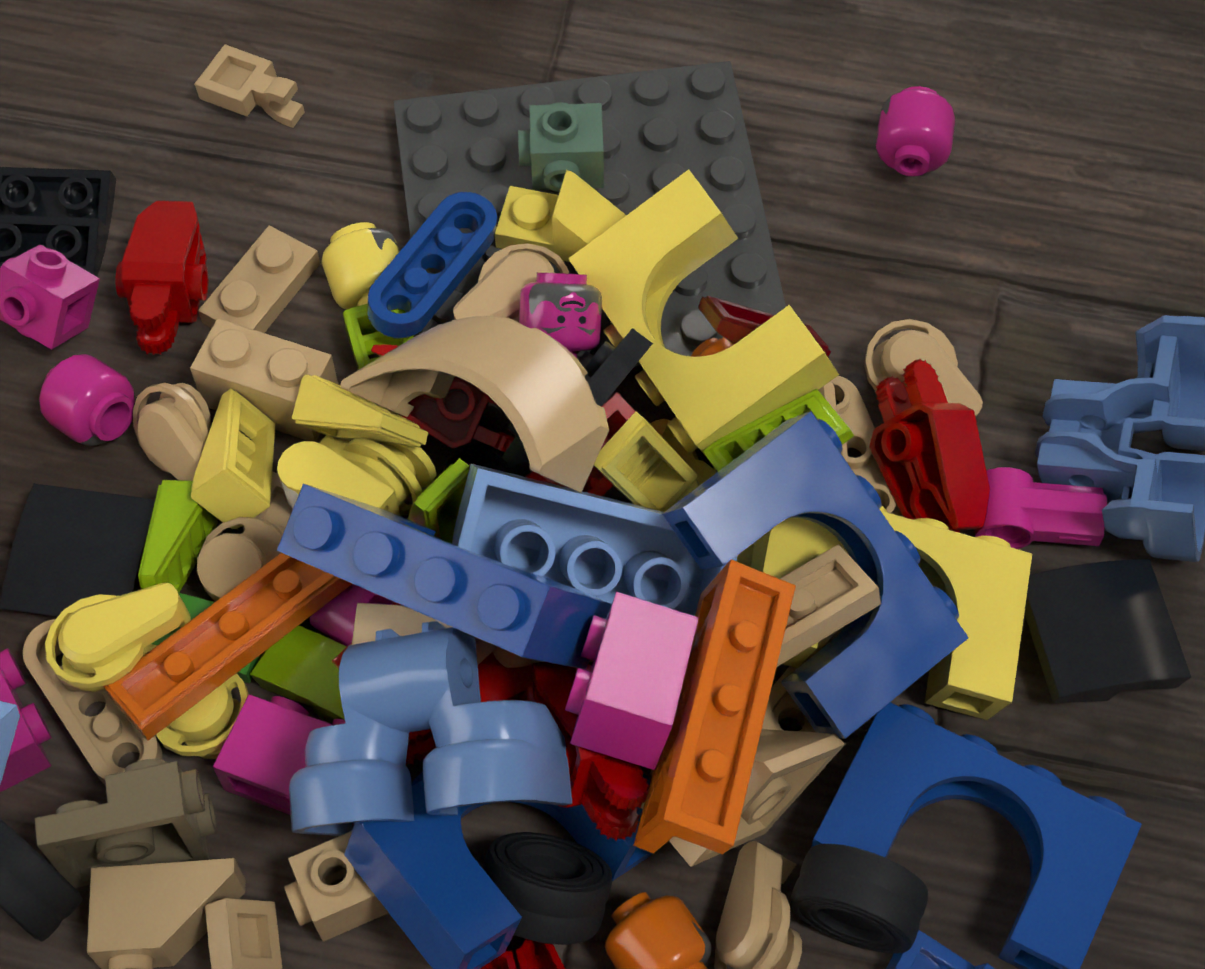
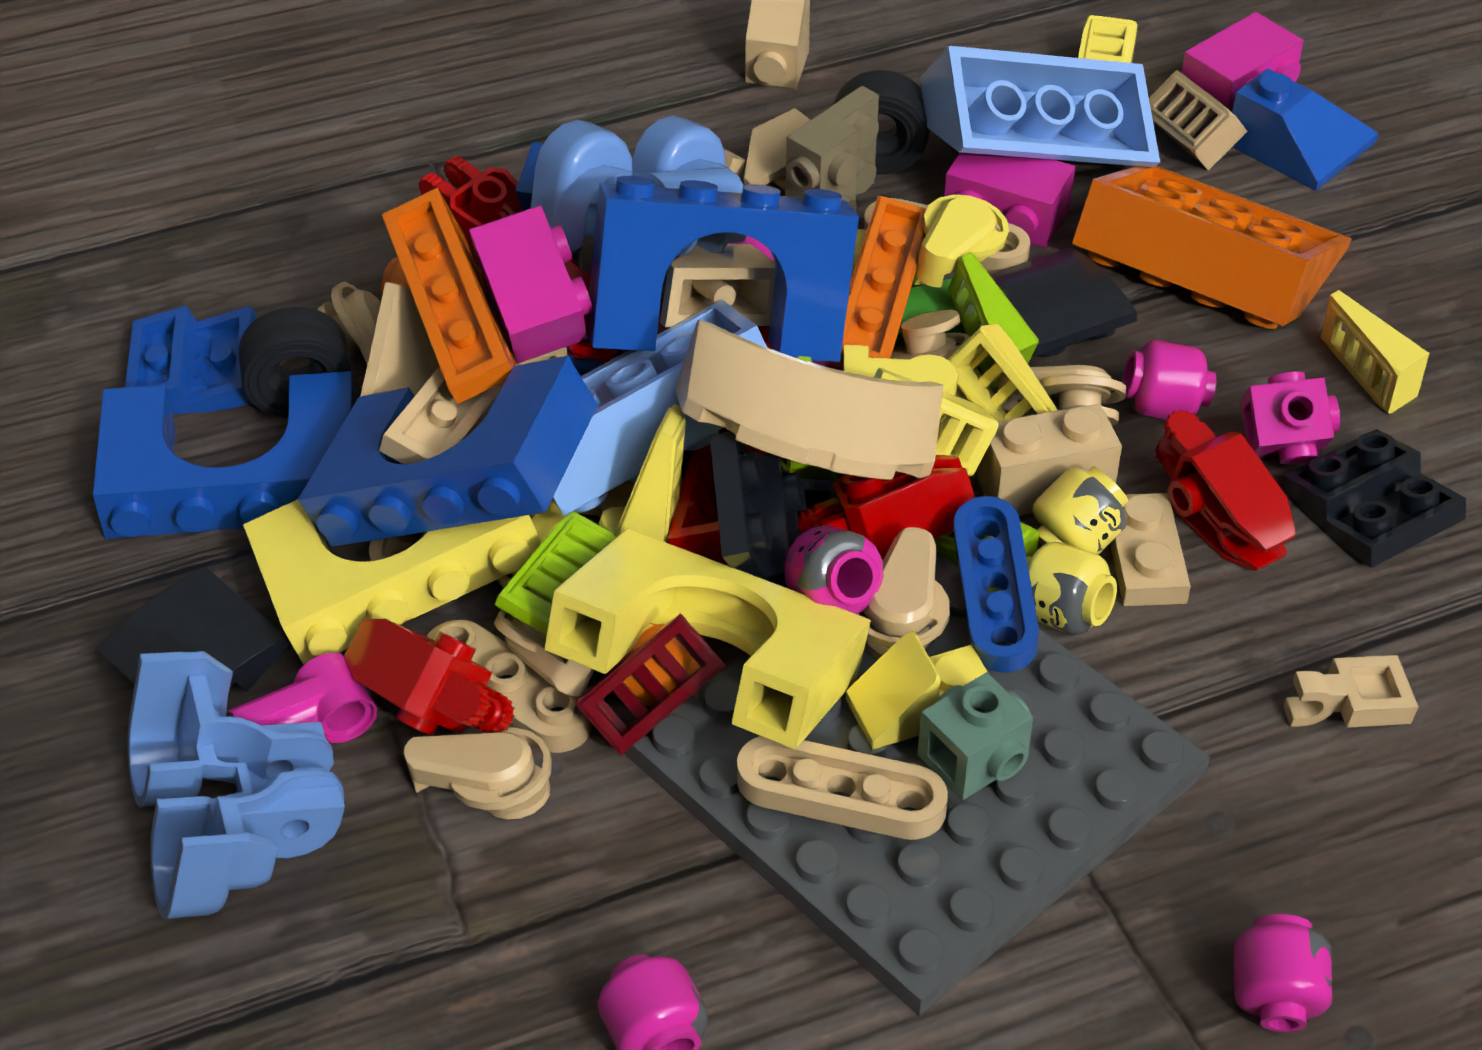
camera: 145 degrees right, 15 degrees down
(296, 308) = (1081, 510): none -> light yellow head
(669, 160) = (875, 784): none -> tan plate

